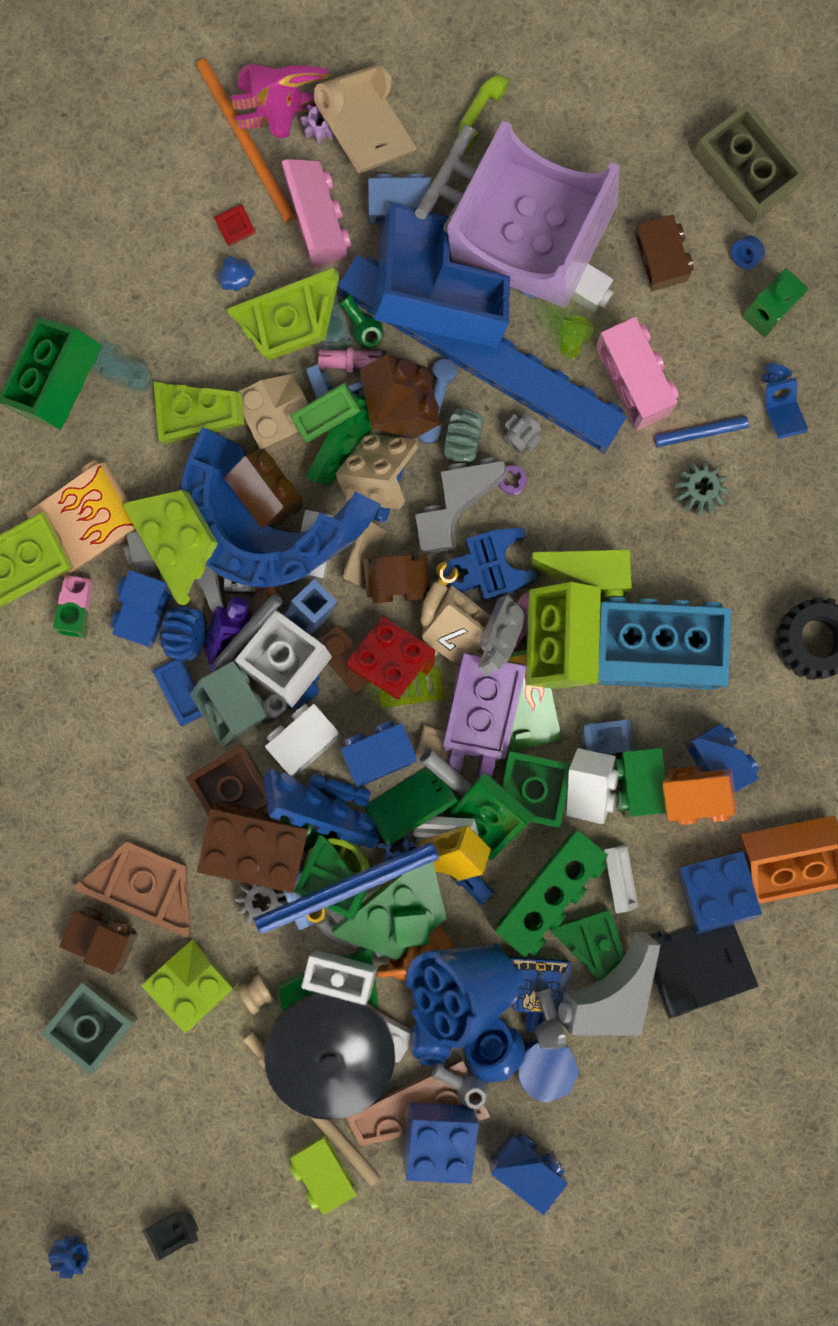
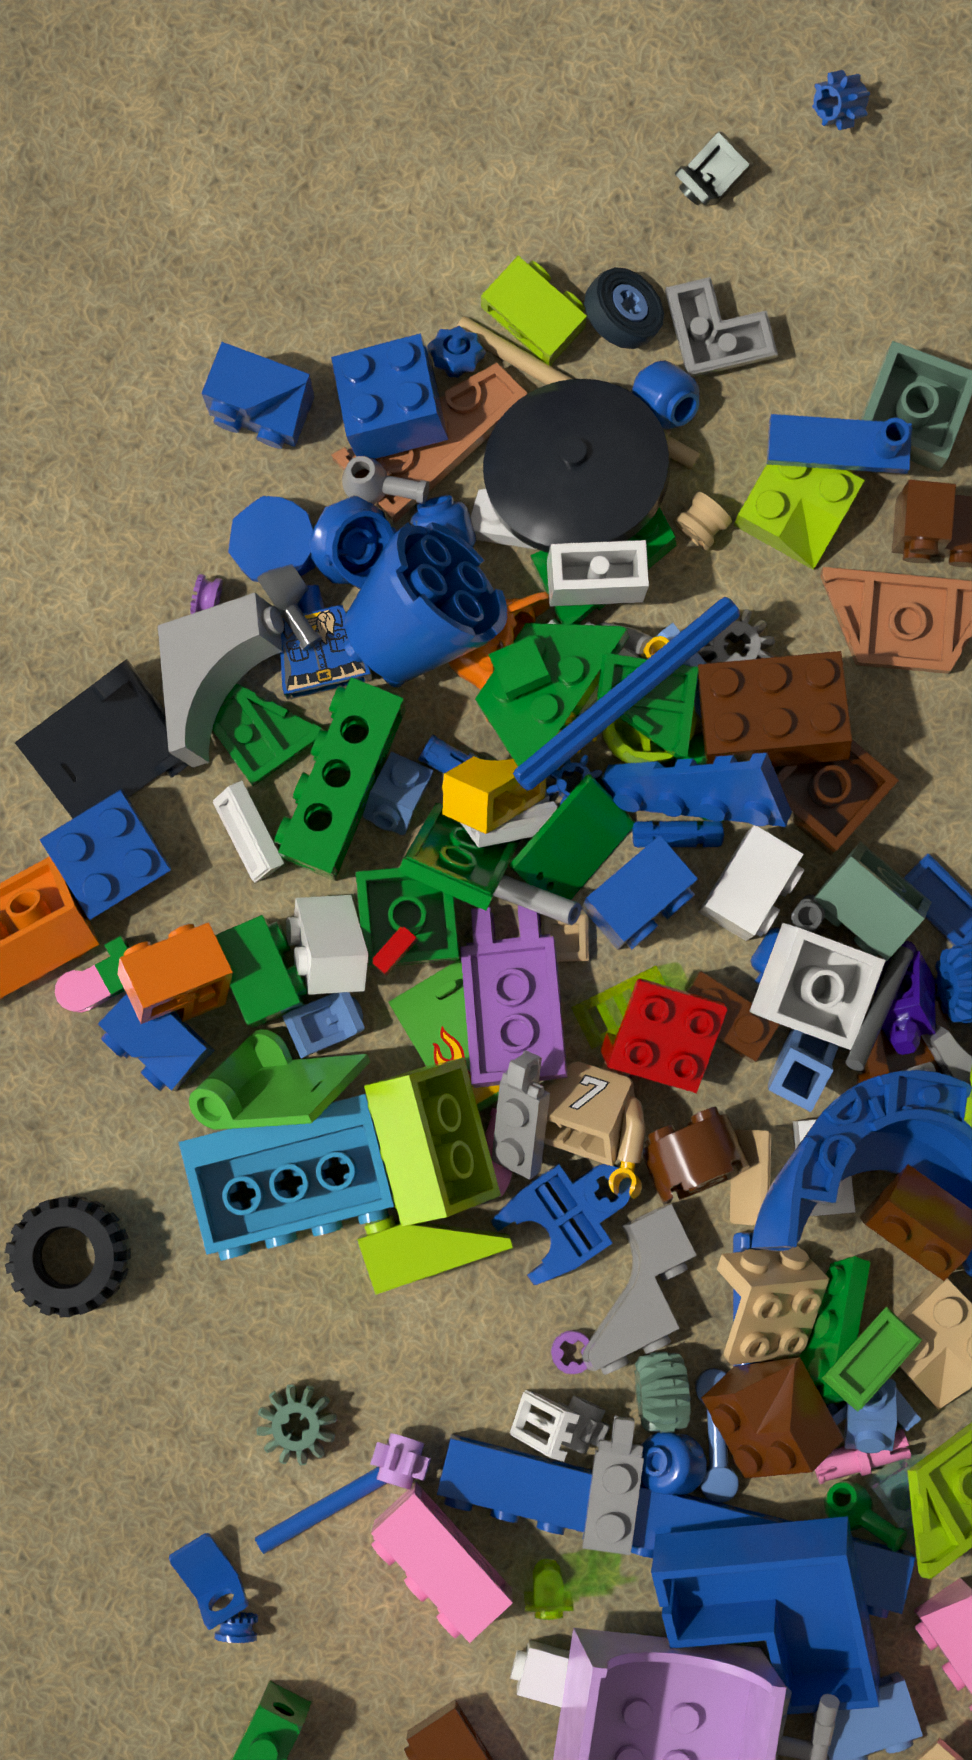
camera: 160 degrees right, 0 degrees up
(150, 1014) = (839, 443): none -> blue piece
(212, 1114) = (709, 342): none -> light grey brick
(252, 1087) = (668, 393): none -> blue head
(275, 1152) = (605, 311): none -> black bush
(336, 372) = (875, 1424): none -> medium blue bracket
(384, 1162) = (456, 351): none -> blue piece
(472, 390) = (672, 1463): none -> blue head
(514, 383) = (614, 1491): none -> light grey hinge
(515, 874) = (397, 793): none -> medium blue bracket
(538, 432) = (556, 1430): none -> white tile
(551, 766) = (394, 950): none -> red tile
(601, 1047) = (207, 593): none -> medium lavender bush
(642, 445) = (400, 1461): none -> lavender gear
(657, 703) = (268, 1088): none -> bright green door
(757, 808) = (89, 988): none -> bright pink leg

